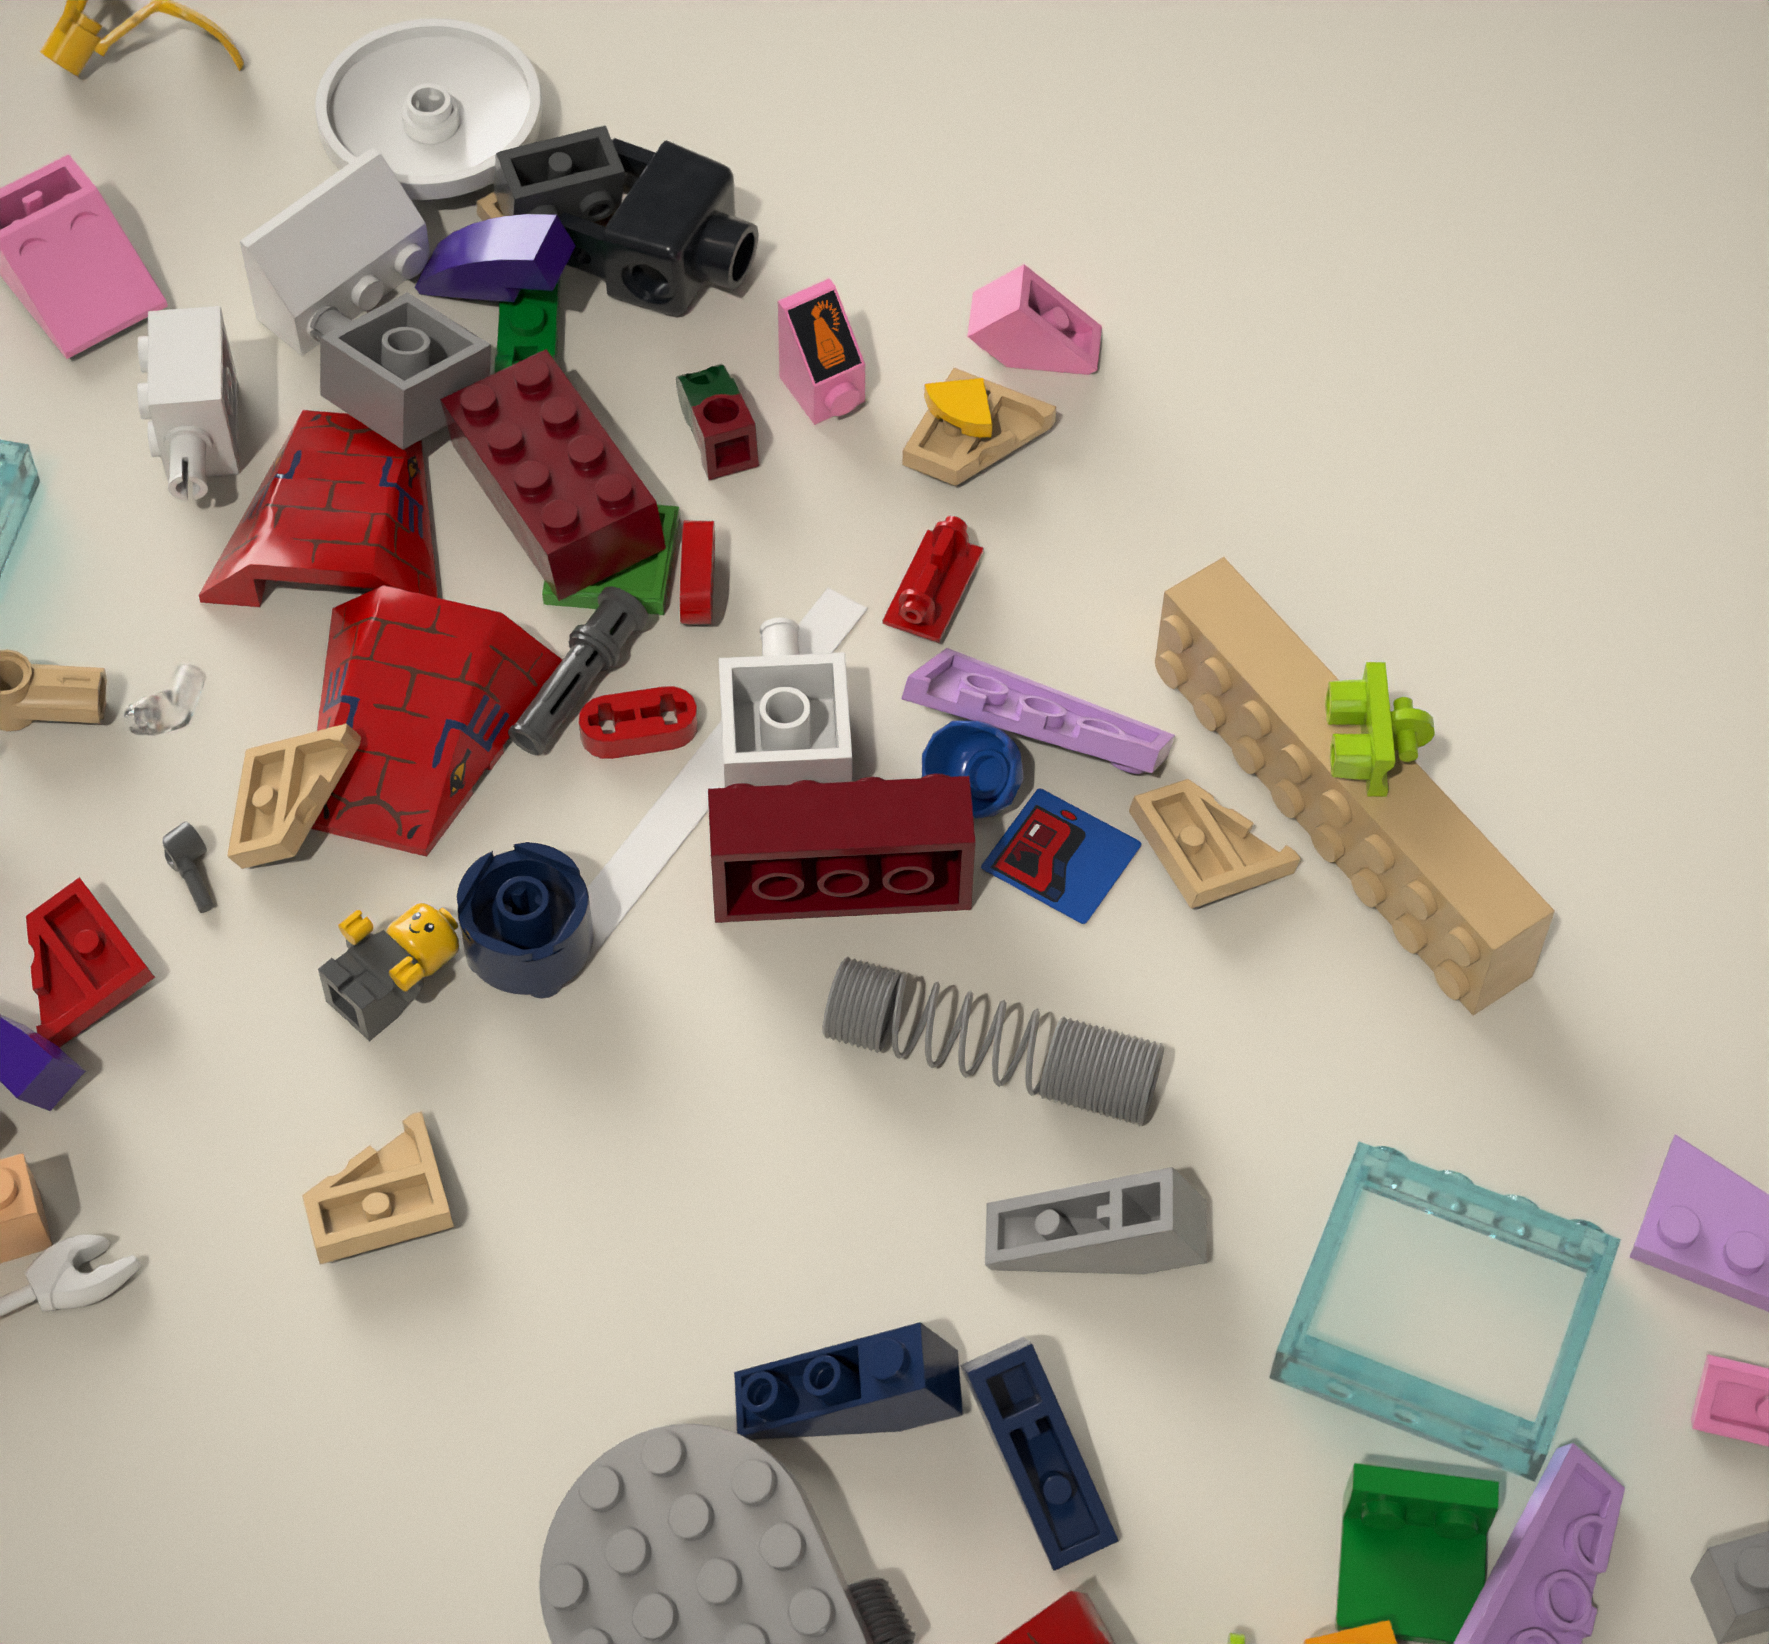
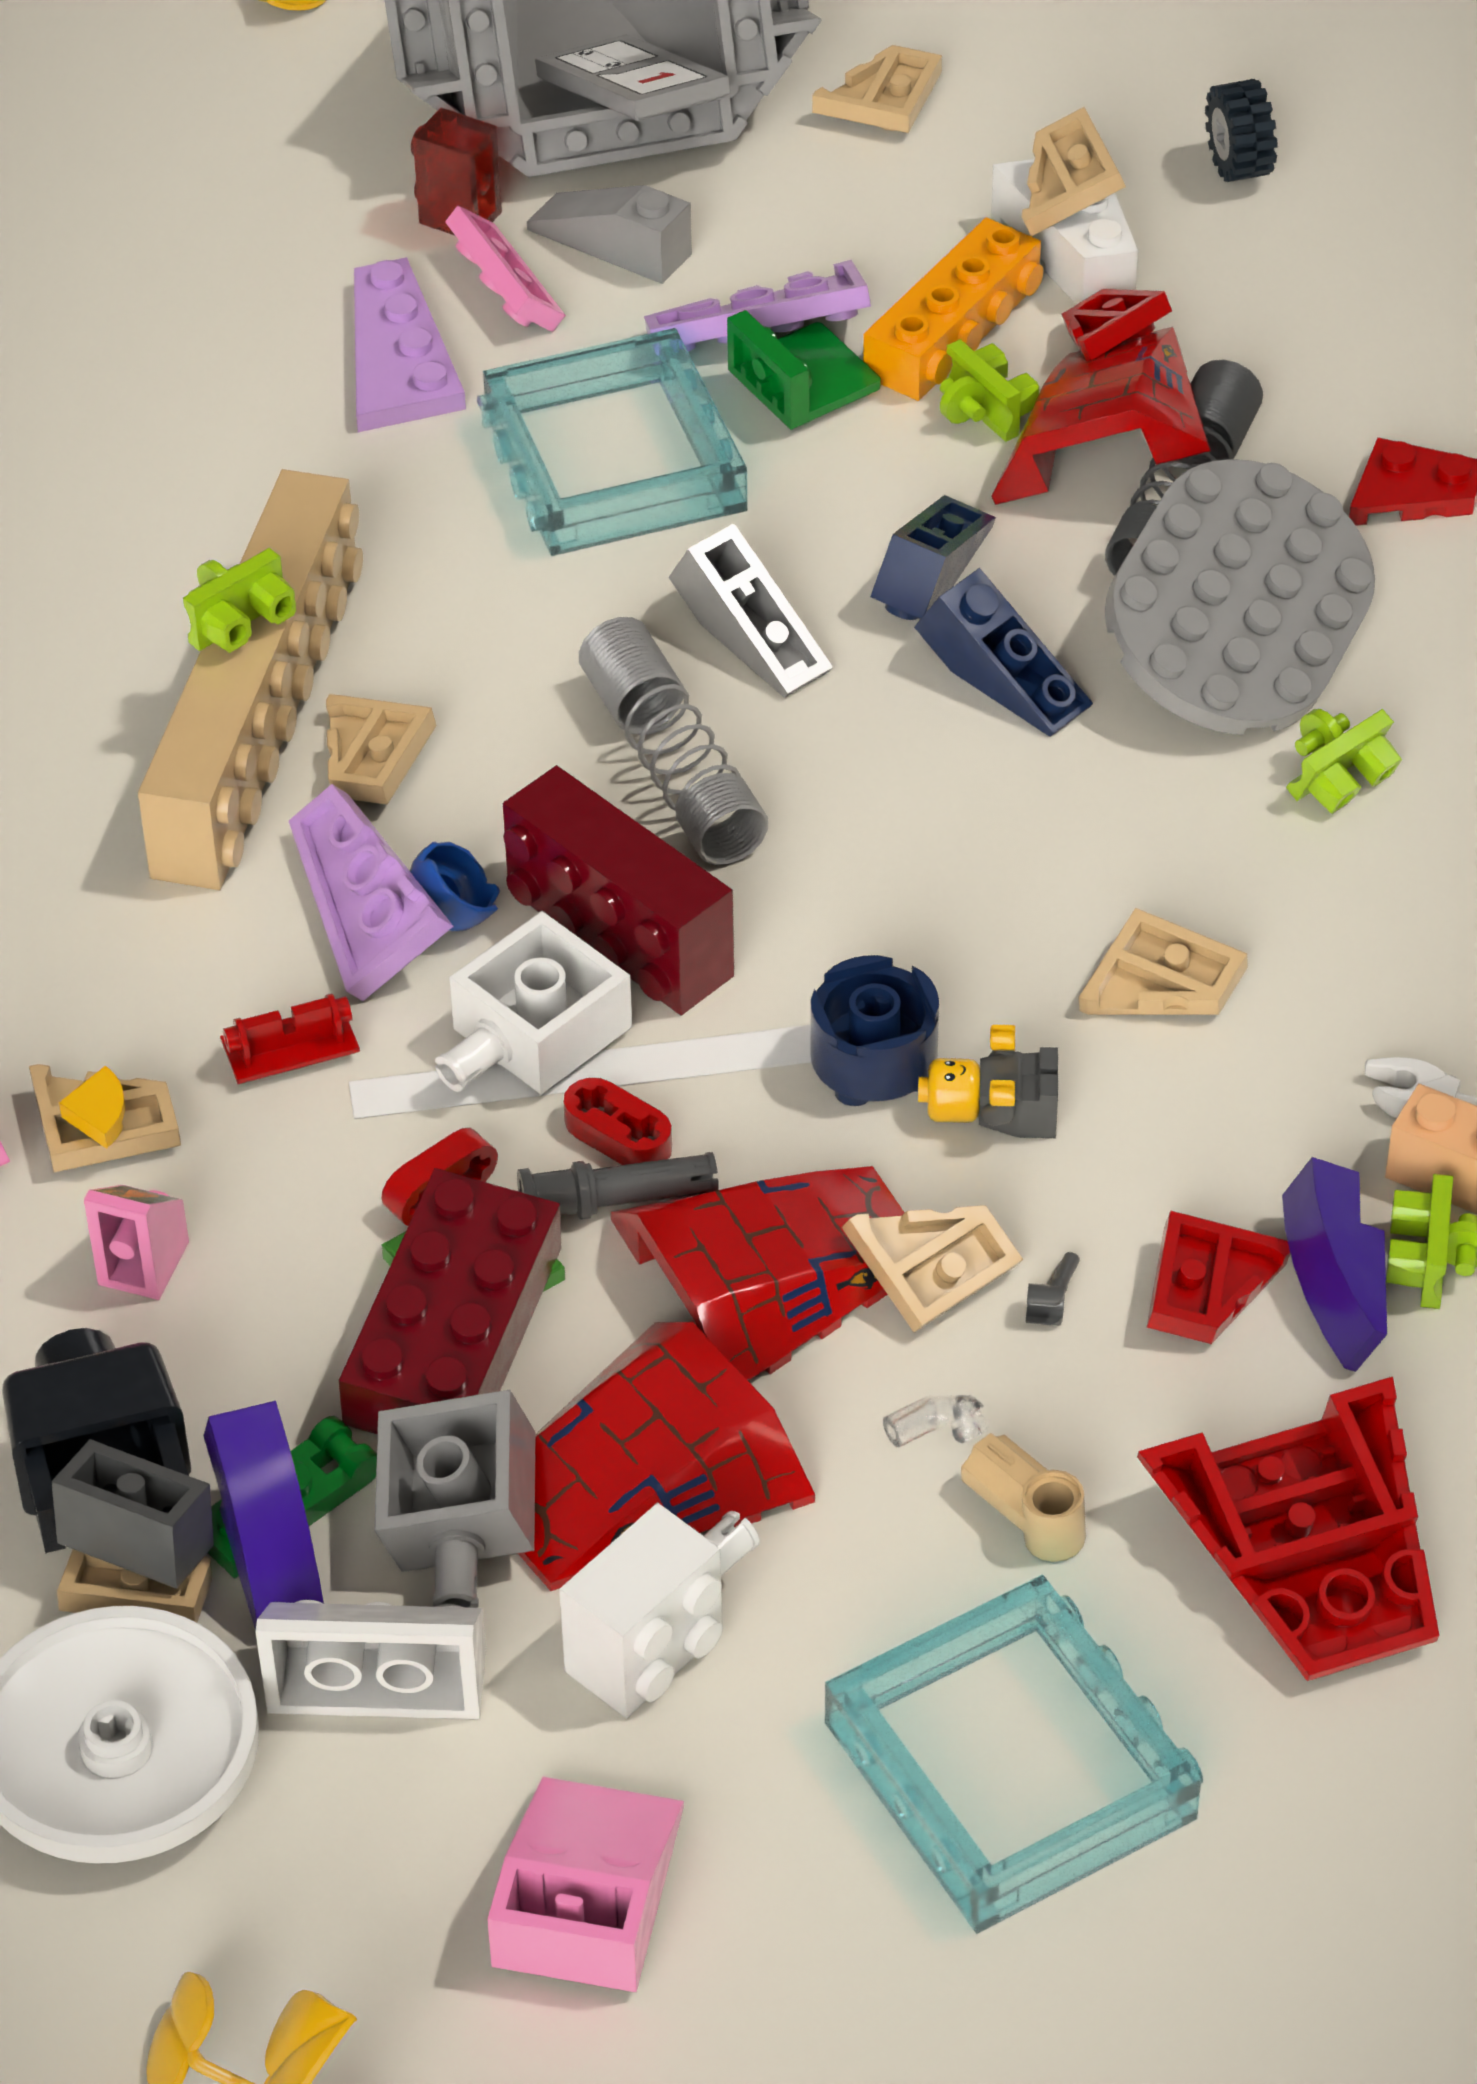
camera: 130 degrees left, 10 degrees down
(458, 1554) = (1334, 752): none -> lime hips
(718, 421) = (264, 1274): dark red leg -> none
(1061, 856) = (463, 817): sticker -> none

